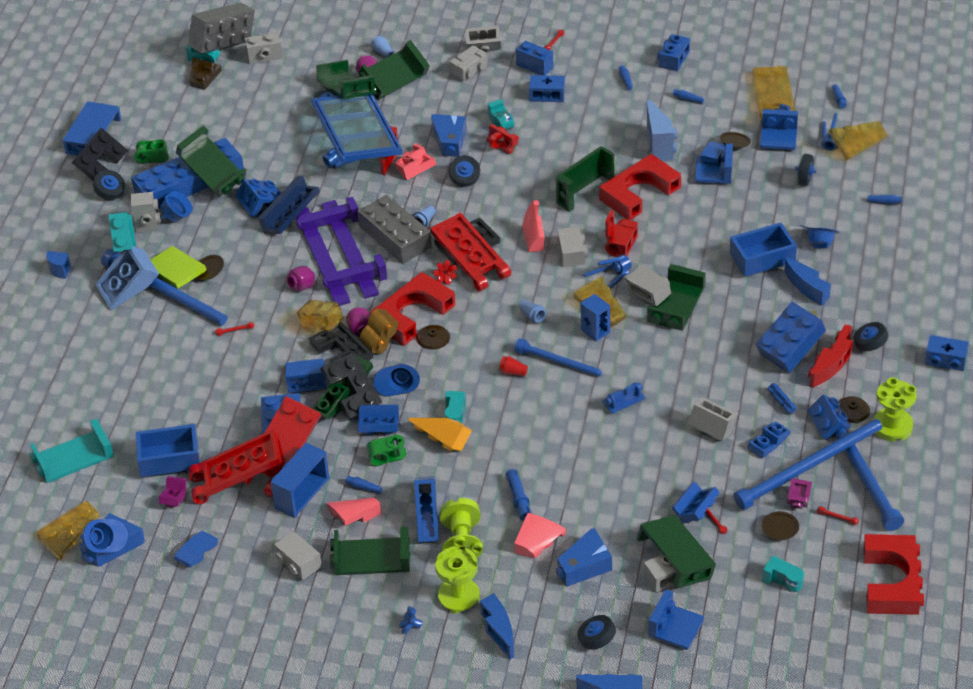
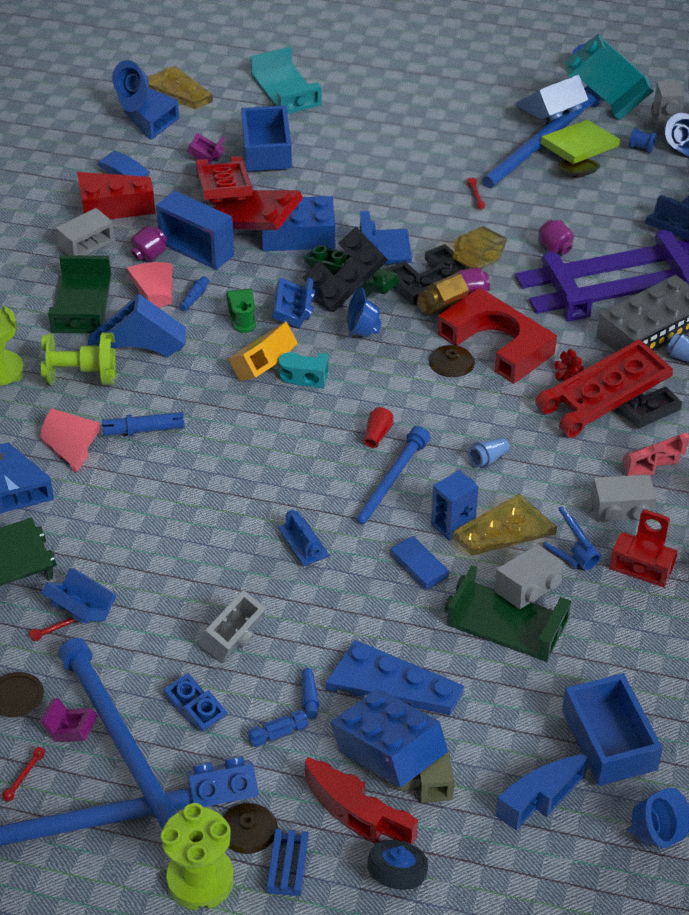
camera: 90 degrees right, 0 degrees up
(174, 234) = (642, 140): none -> blue bush
(242, 547) = (116, 194): none -> red wedge
(307, 515) = (148, 244): none -> magenta head
(635, 342) = (419, 562): none -> blue tile
(733, 352) = (367, 668): none -> blue wing
(751, 387) = (309, 694): none -> blue animal
(867, 386) = (291, 839): none -> blue tile

